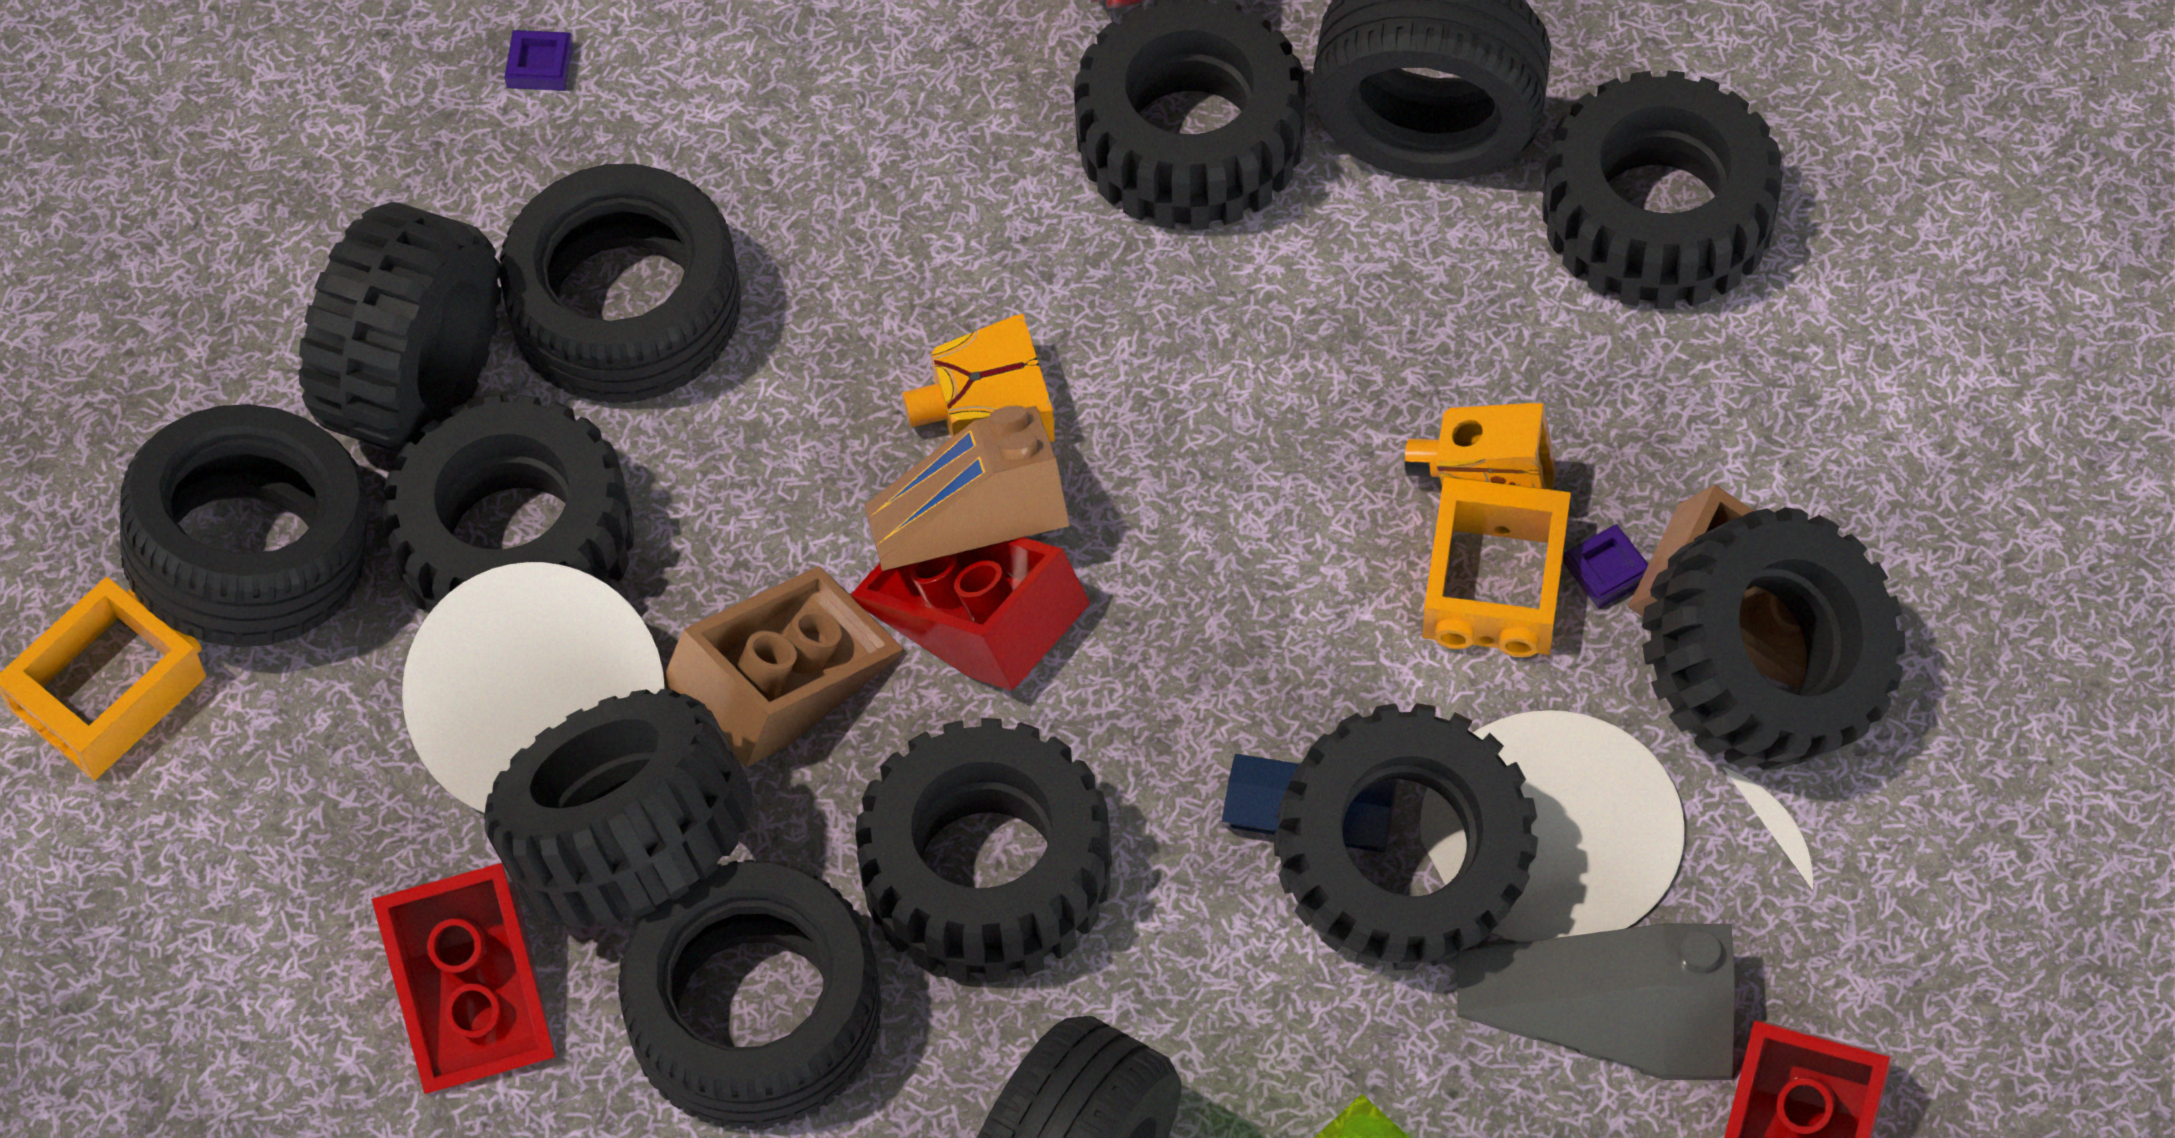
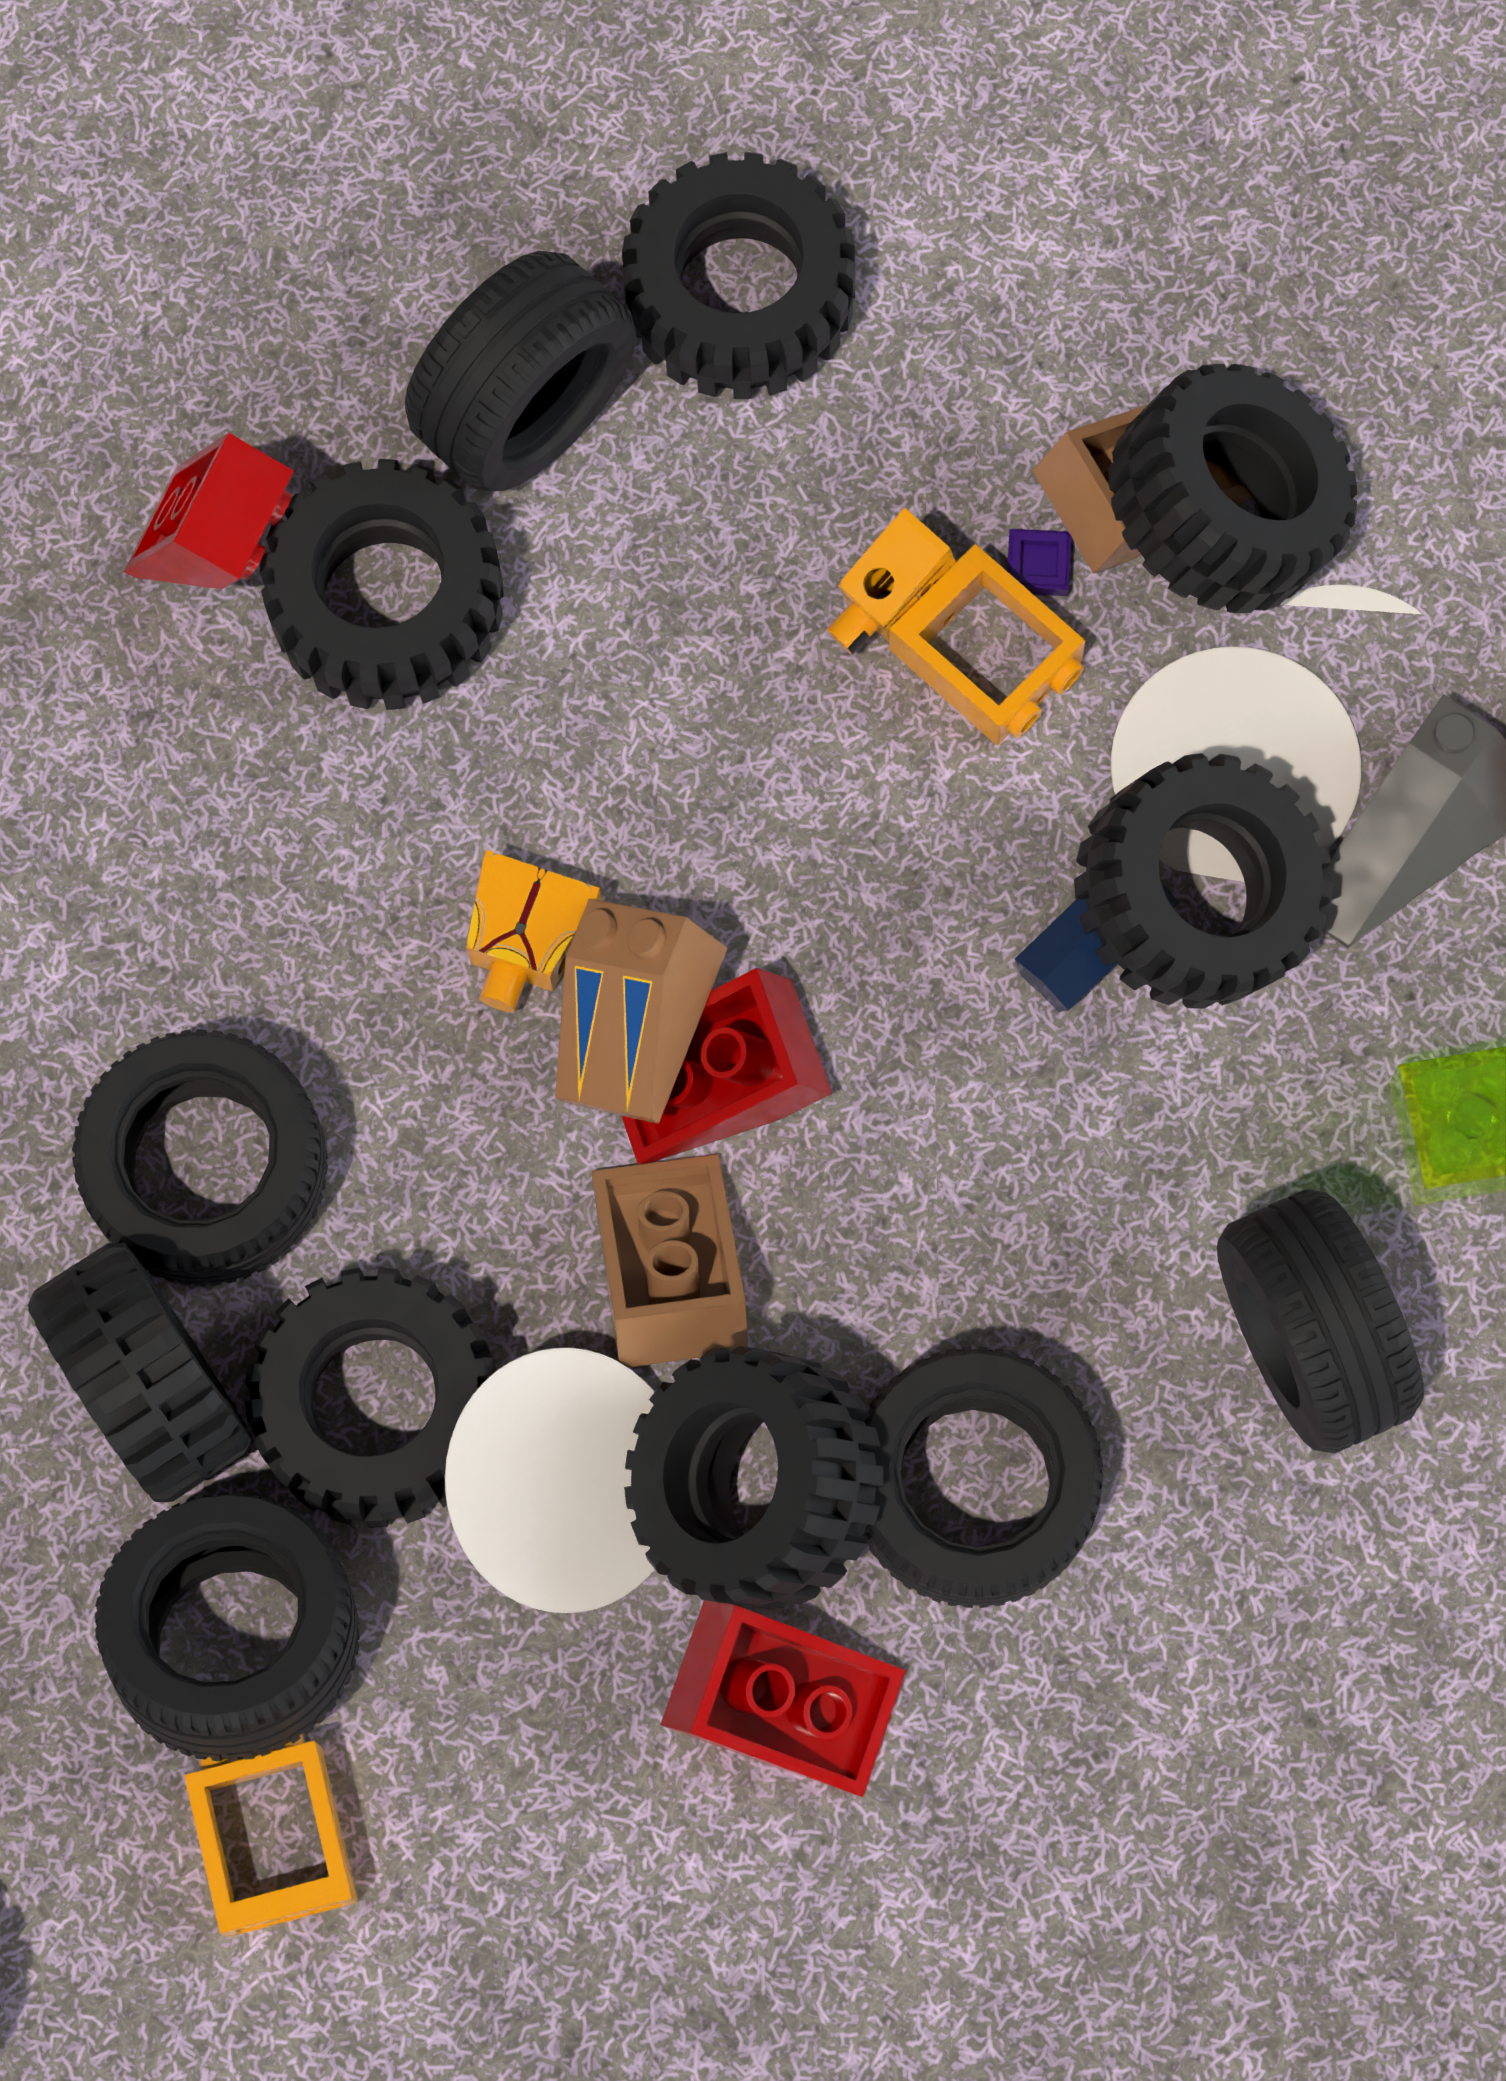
camera: 55 degrees left, 15 degrees up
(969, 775) = (985, 1127): black tyre -> none

